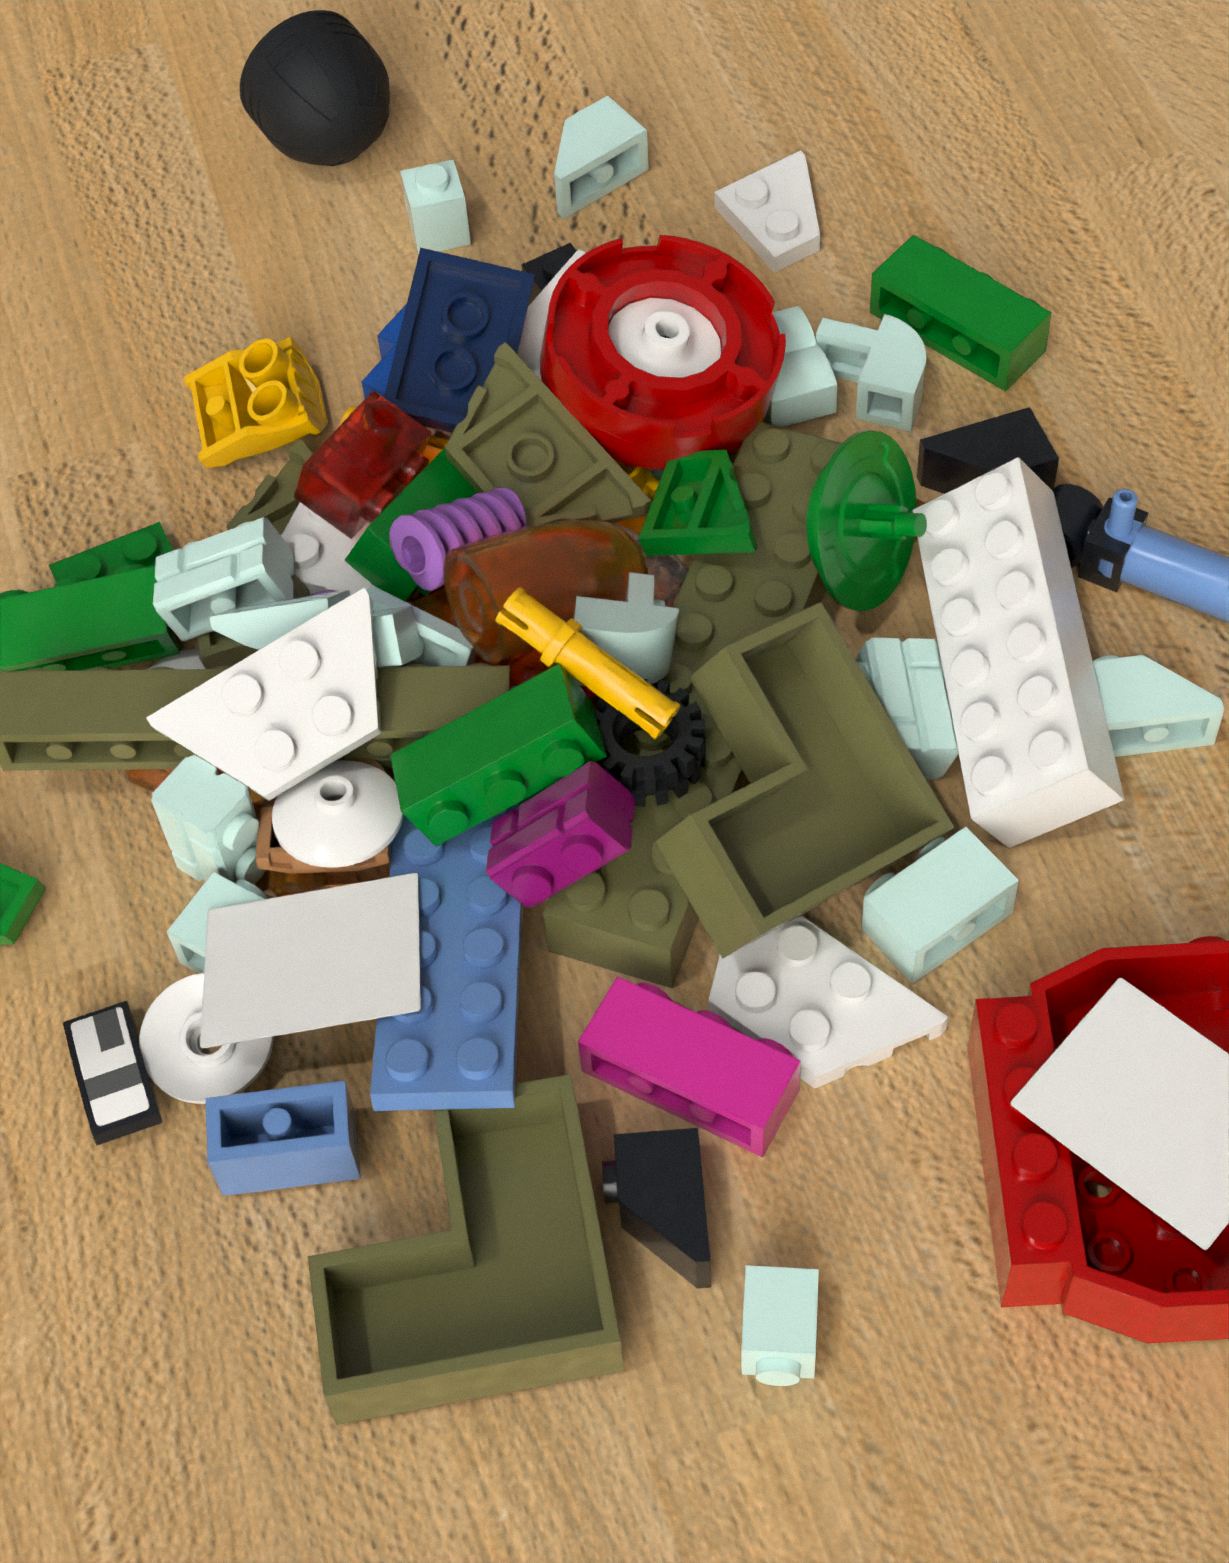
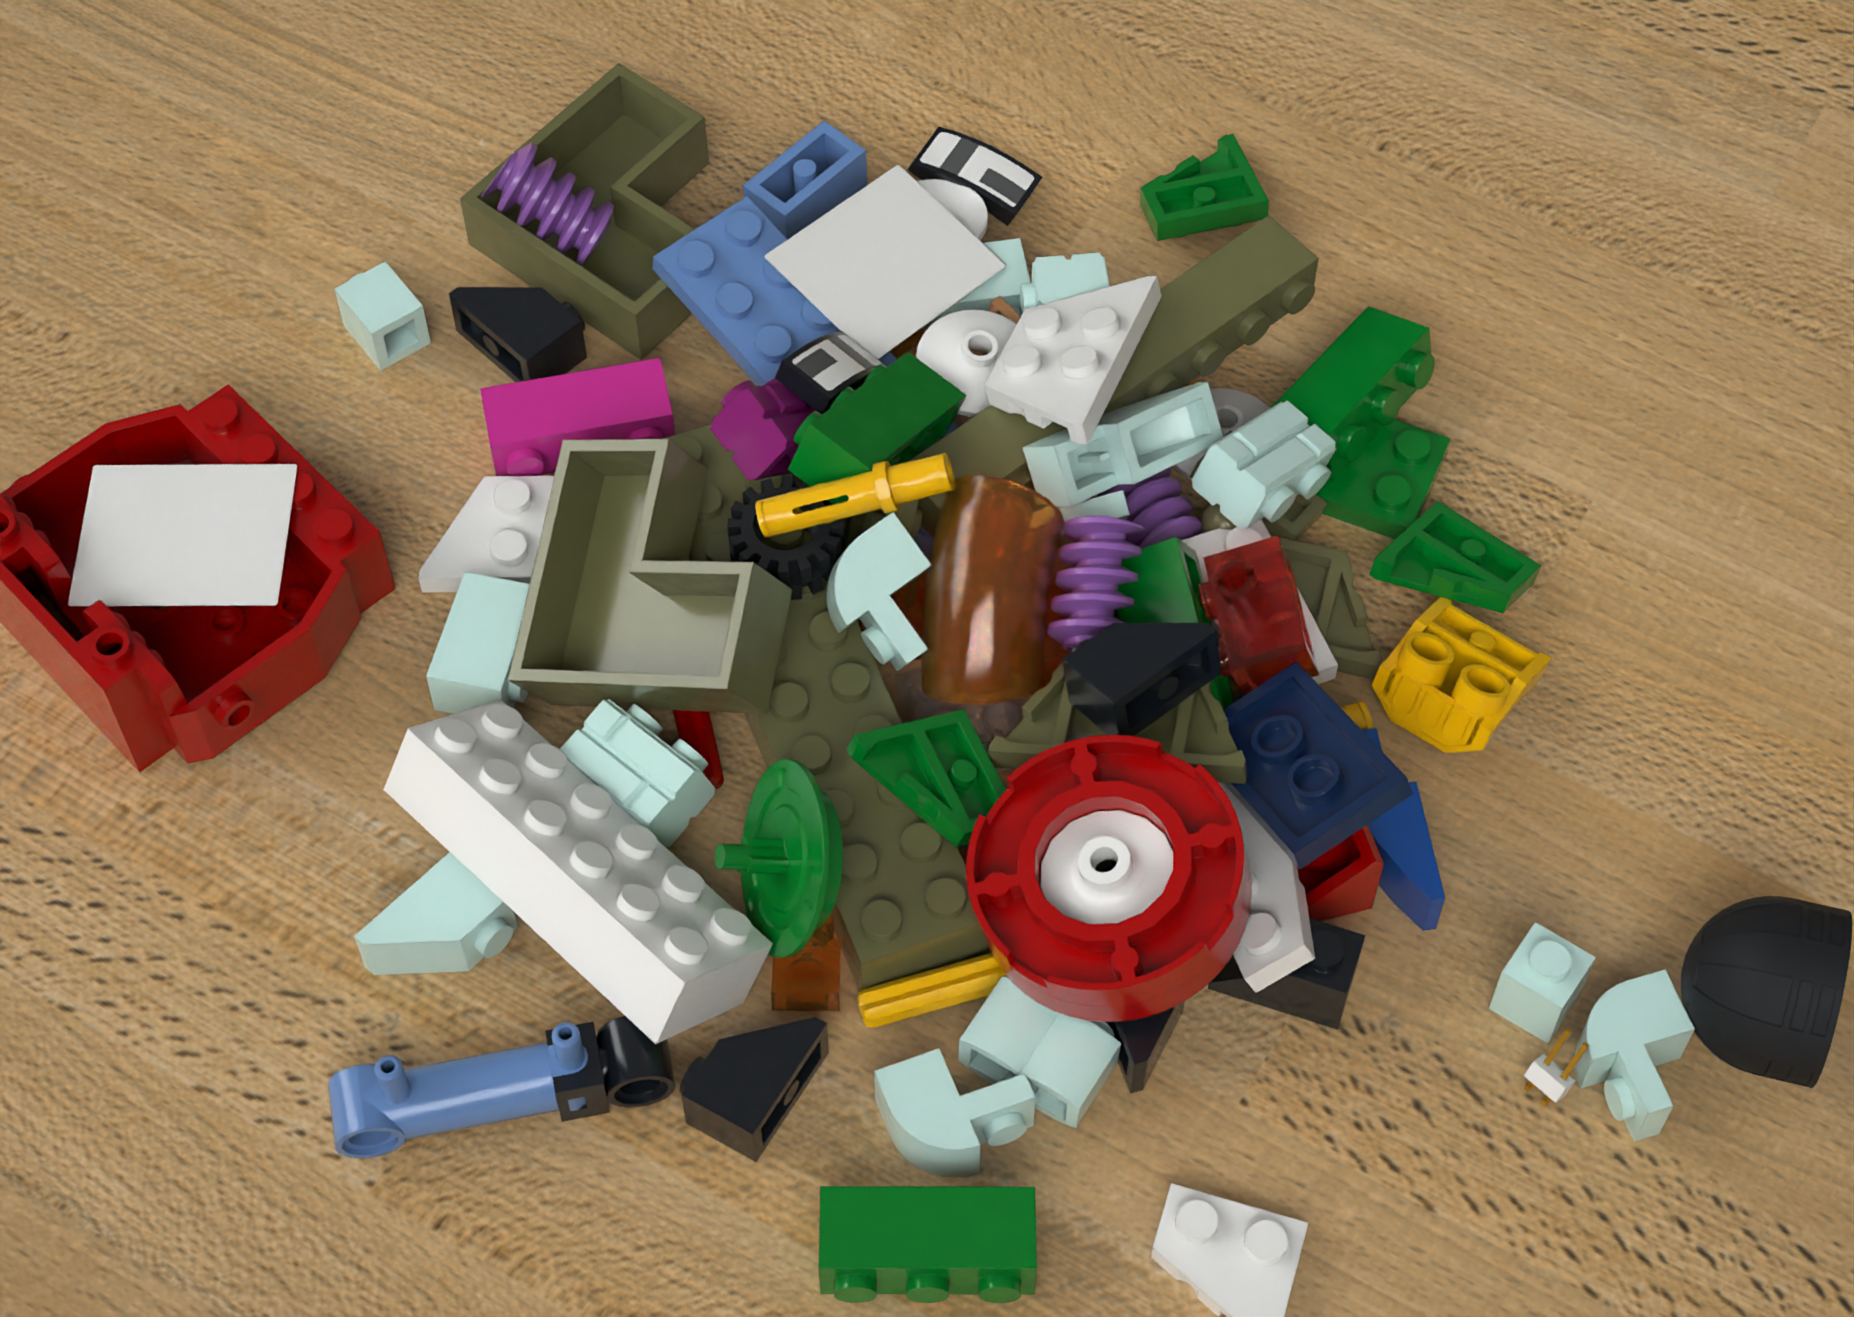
camera: 135 degrees right, 0 degrees up
(161, 475) = (1455, 561): none -> green wing
(408, 145) = (1627, 1036): none -> light aqua brick
(481, 834) = (825, 369): none -> slope
(486, 171) = (1549, 1076): none -> white piece
(508, 438) = (1139, 672): none -> black slope
(543, 1262) = (551, 202): none -> medium lavender piece
(597, 154) = (1471, 1174): light aqua slope -> none

